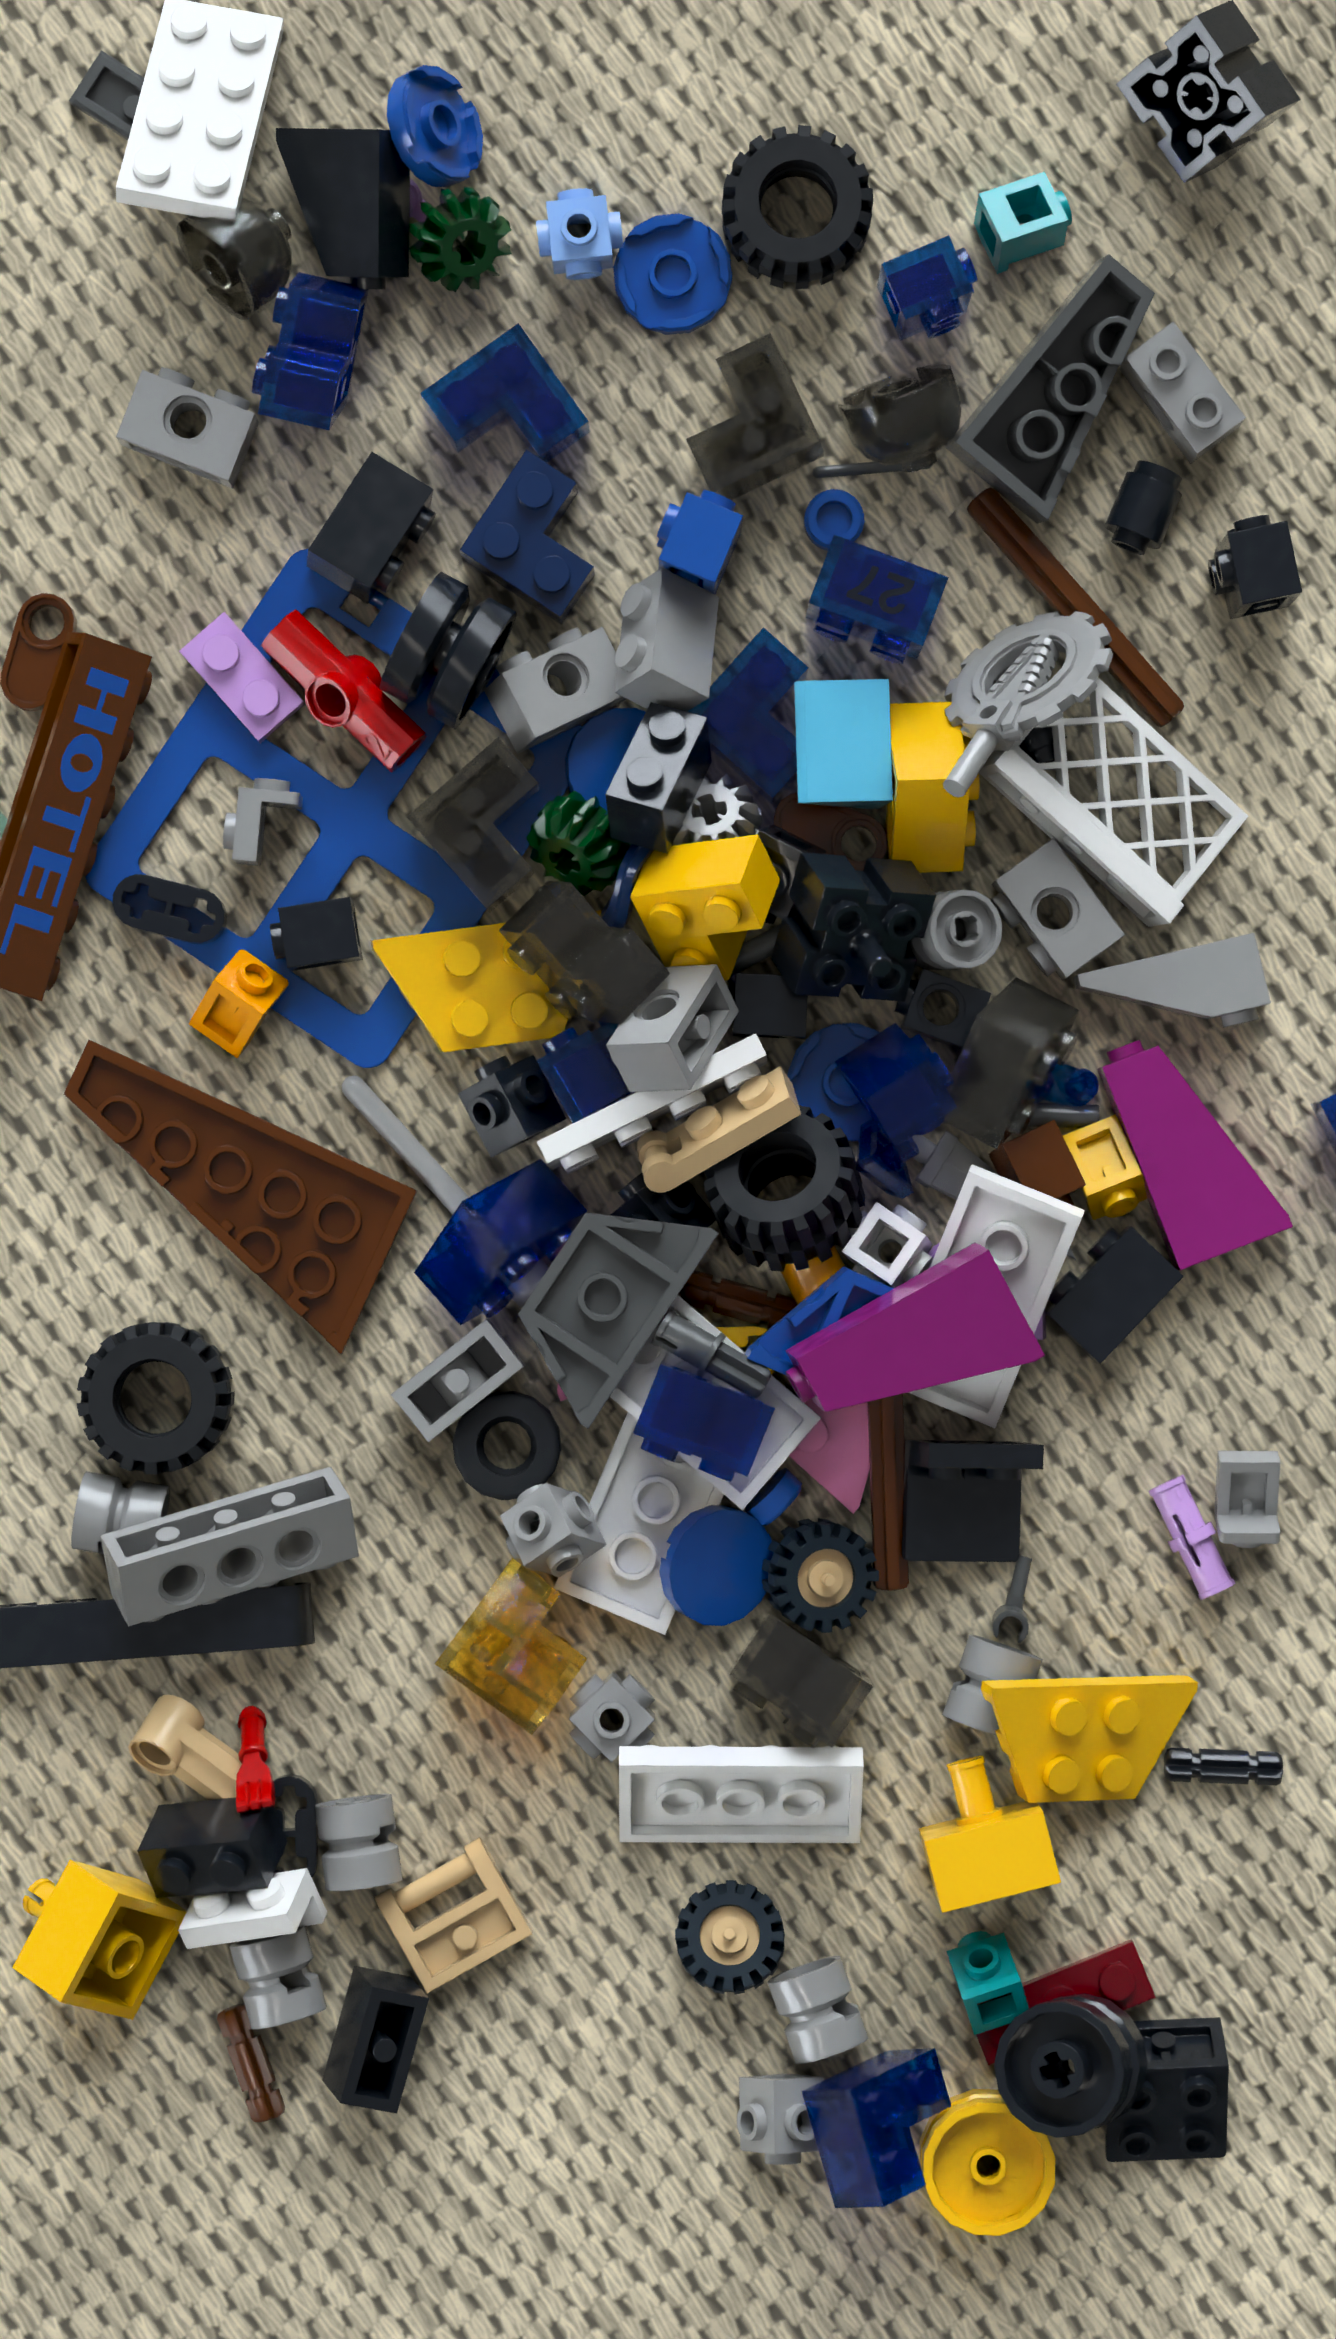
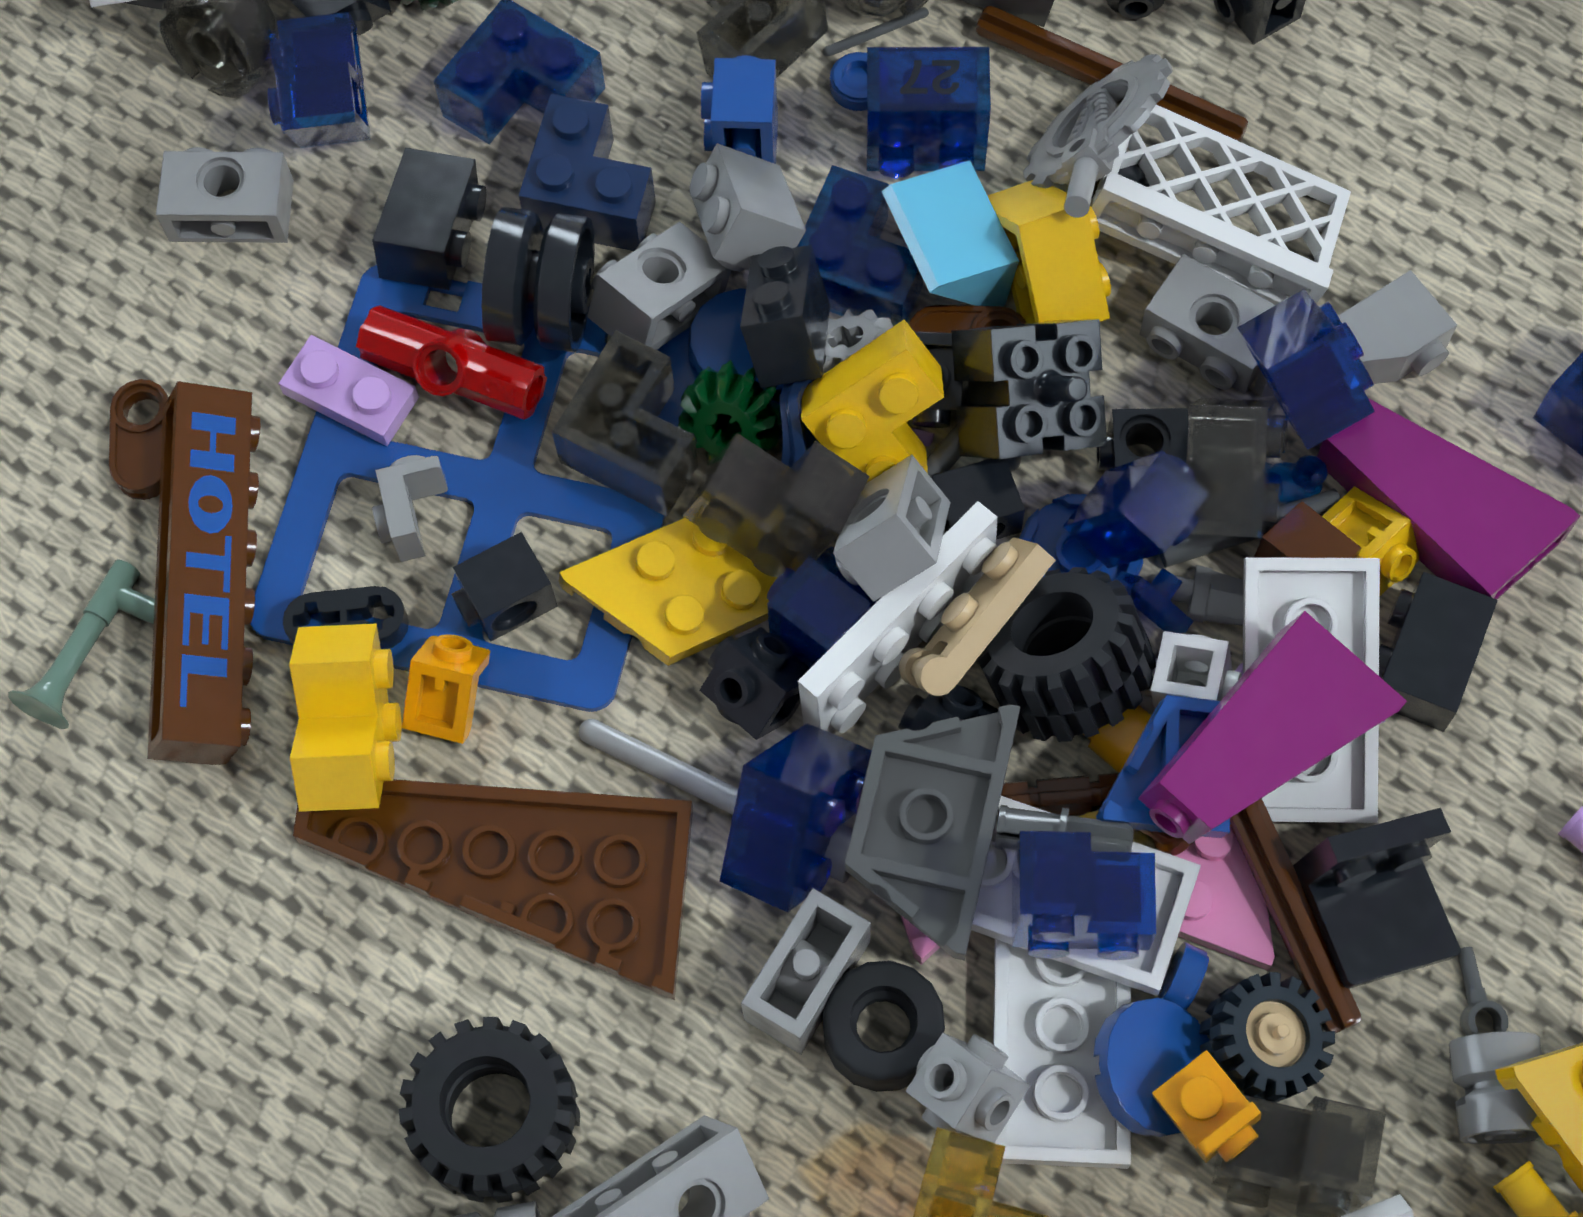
camera: 20 degrees left, 20 degrees down
(137, 1015) = (344, 717): none -> yellow brick
(740, 1623) = (1209, 1109): none -> light orange bracket
(959, 933) = (1135, 361): light grey wheel -> none
(1103, 1007) = (1310, 366): none -> clear blue brick

